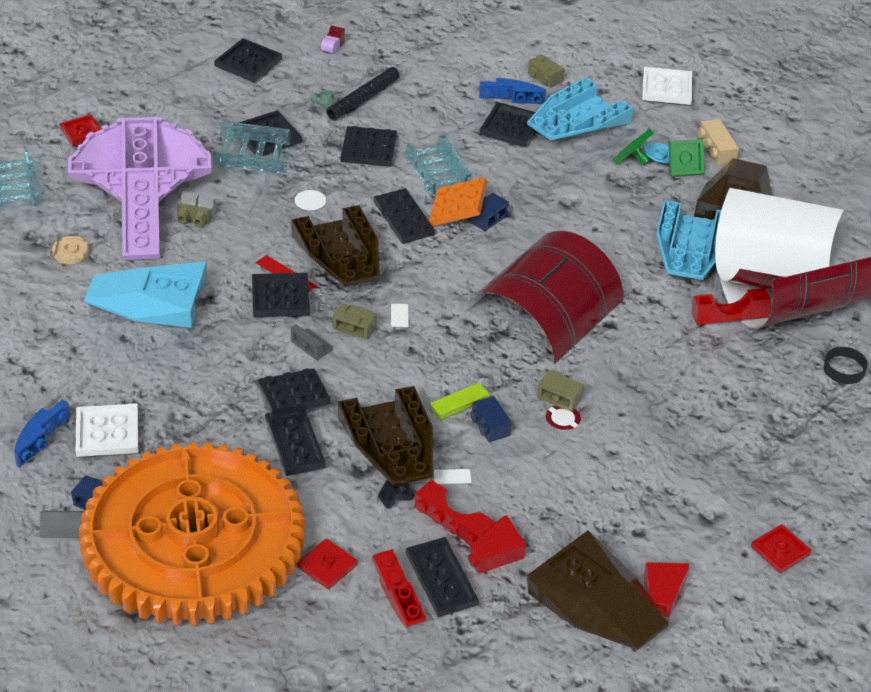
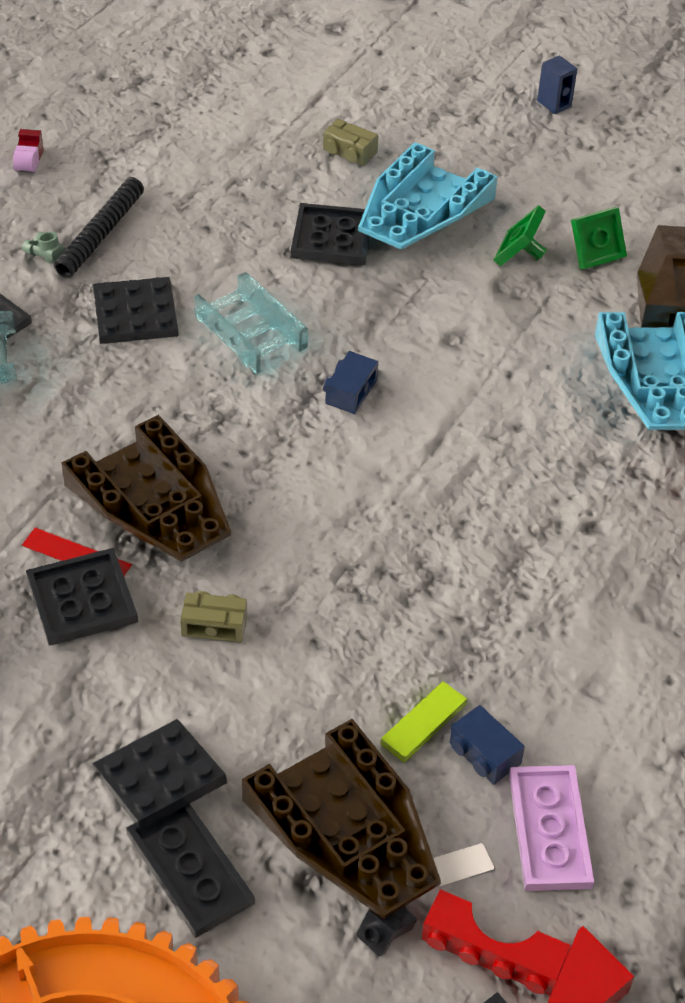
camera: 15 degrees left, 5 degrees up
(310, 200) = (74, 417): white sticker -> none
(310, 342) = (155, 671): dark grey panel -> none
(399, 315) = (277, 587): white sticker -> none
(404, 216) = (226, 415): black plate -> none
(458, 201) = (303, 376): orange plate -> none
(511, 468) = (550, 828): none -> lavender plate
(517, 90) = (317, 179): blue slope -> none
(560, 390) = (571, 666): olive brick -> none
(562, 285) = (504, 482): dark red sticker -> none
(562, 418) = (587, 709): sticker -> none
(657, 151) = (555, 237): medium azure dish -> none
(667, 85) = (524, 133): white plate -> none
(700, 58) = (557, 84): none -> dark blue brick
(718, 141) = (637, 210): tan brick -> none

